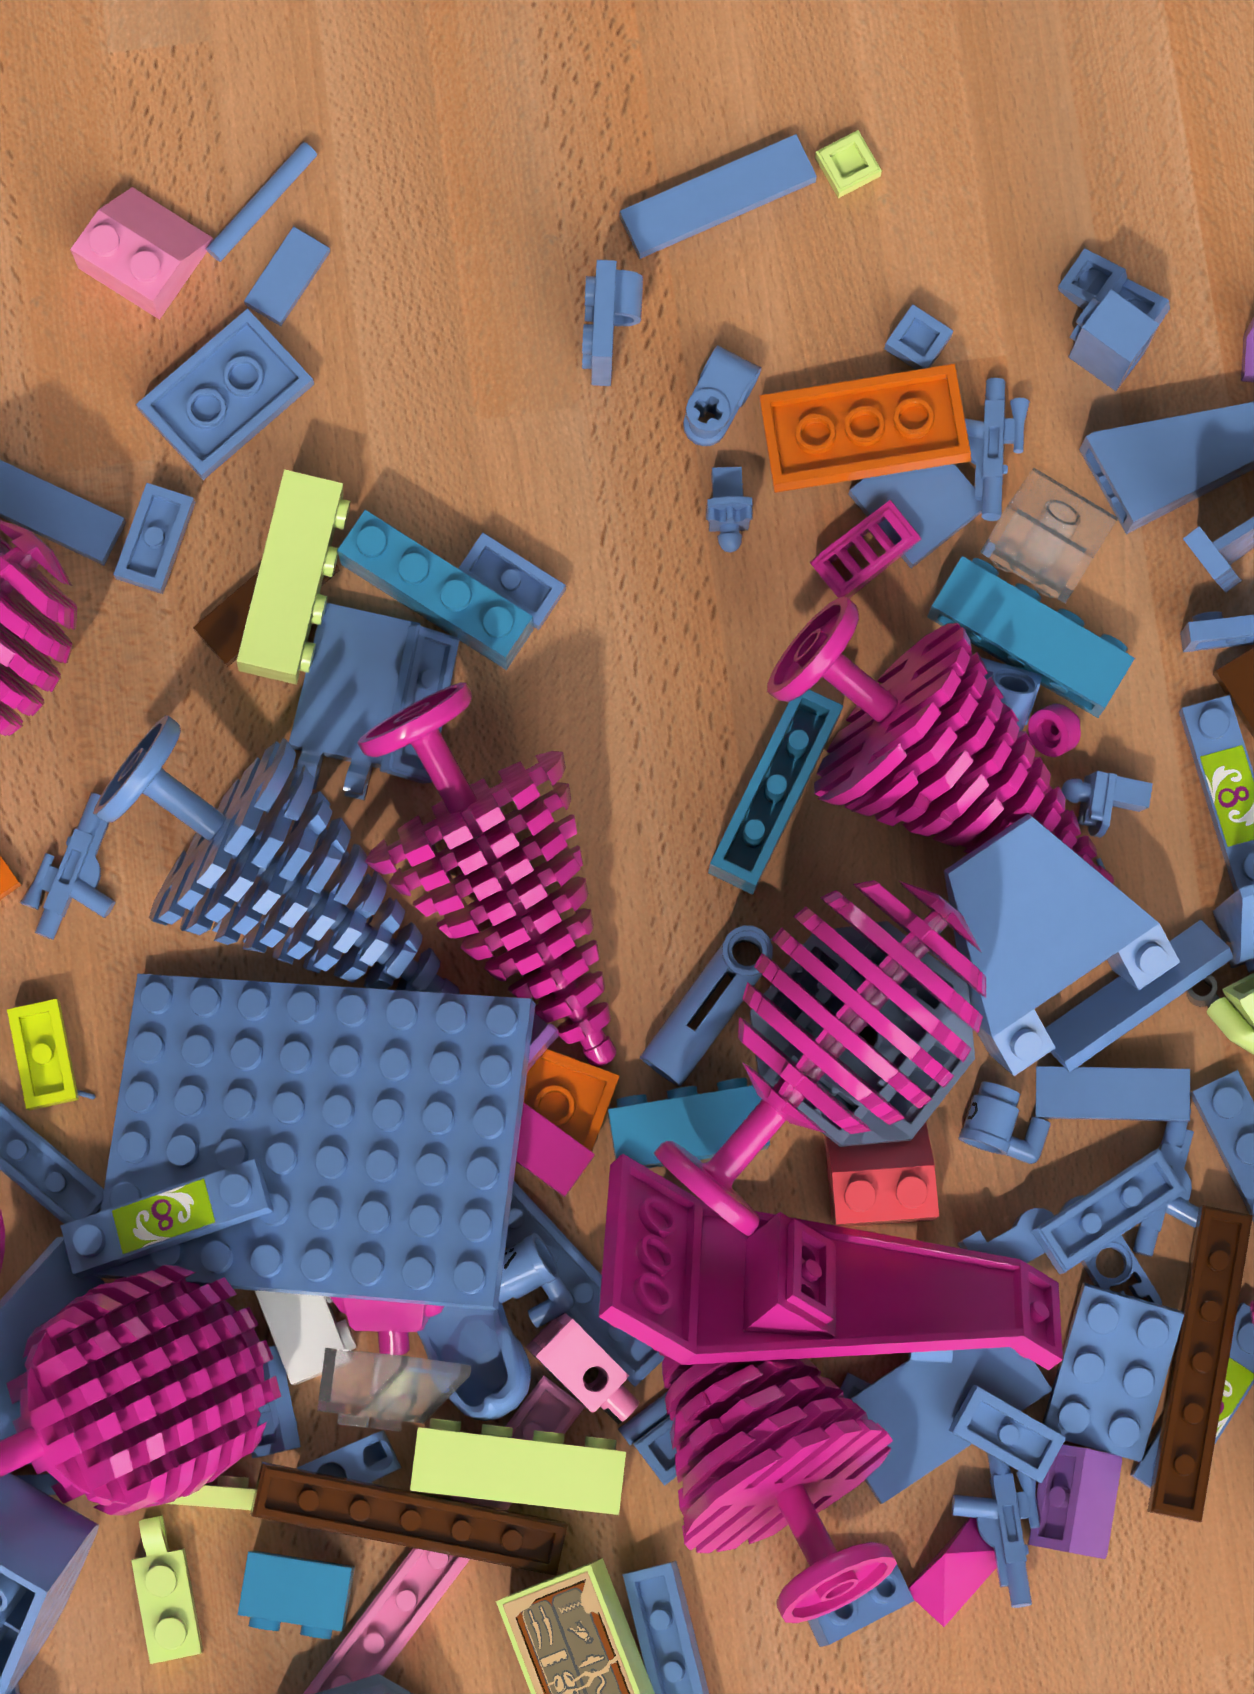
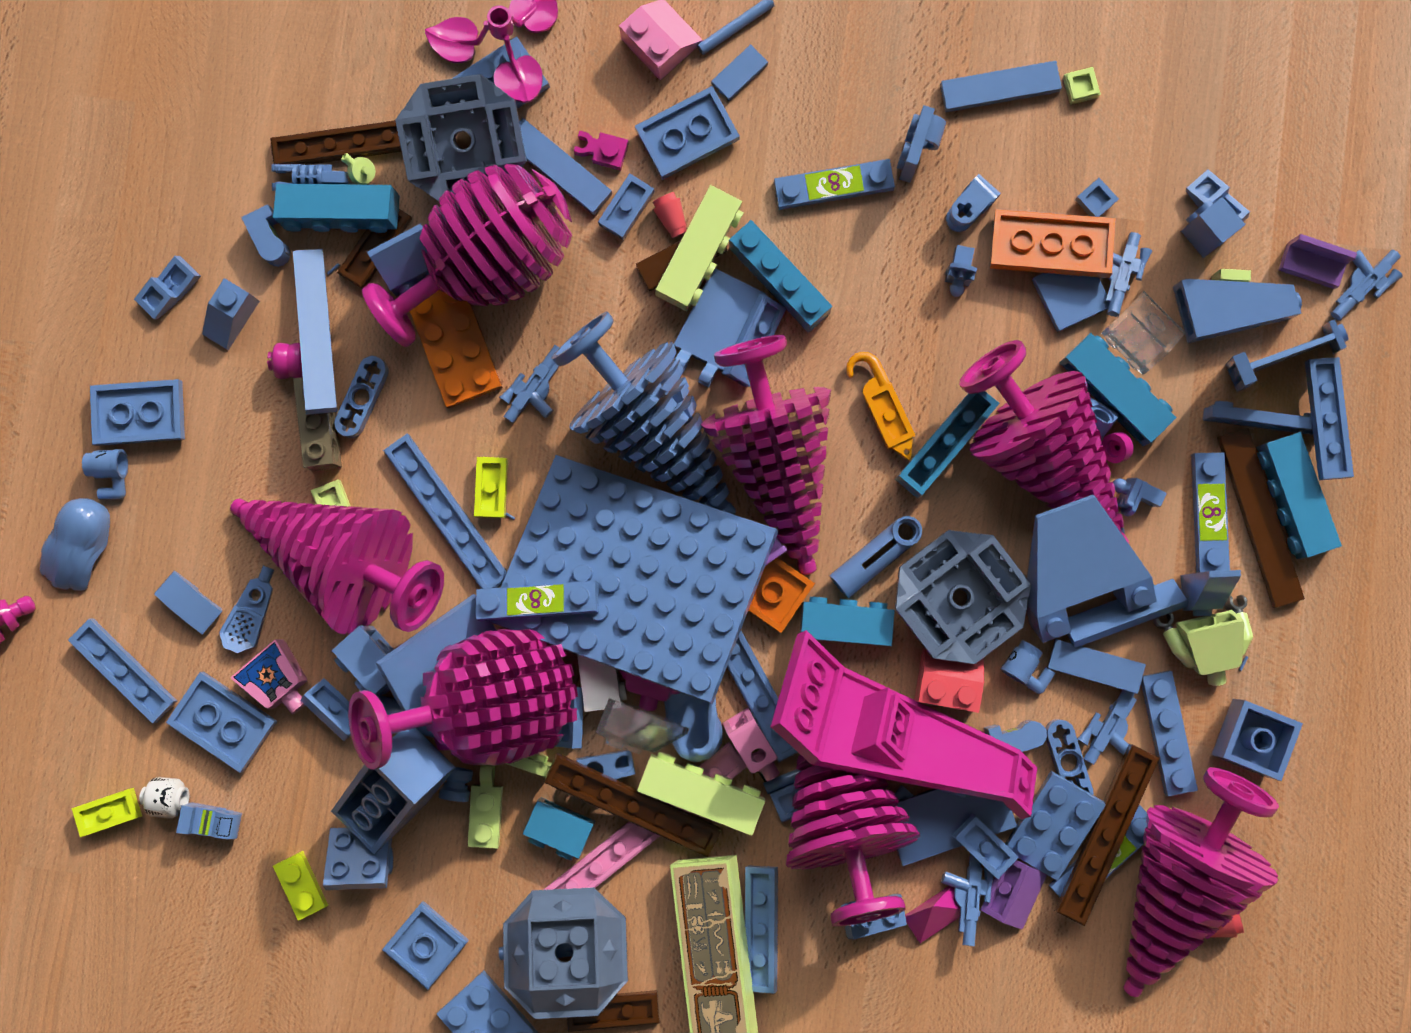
camera: 25 degrees right, 5 degrees up
(99, 455) = (606, 150): none -> dark pink plate
(105, 1567) = (455, 787): none -> medium blue wheel
(231, 533) = (670, 213): none -> coral cone
(487, 419) = (834, 184): none -> medium blue plate
(513, 578) = (826, 280): medium blue plate -> none
(528, 1268) = (738, 680): medium blue piece -> none
(550, 1152) = (765, 618): dark pink tile -> none
(660, 757) = (884, 406): none -> light orange plate
(821, 1055) = (921, 618): dark pink plant -> none
(823, 562) = (1030, 305): dark pink slope -> none
(1108, 1211) = (1077, 734): medium blue tile -> none
(1166, 408) = (1232, 275): none -> yellowish green tile

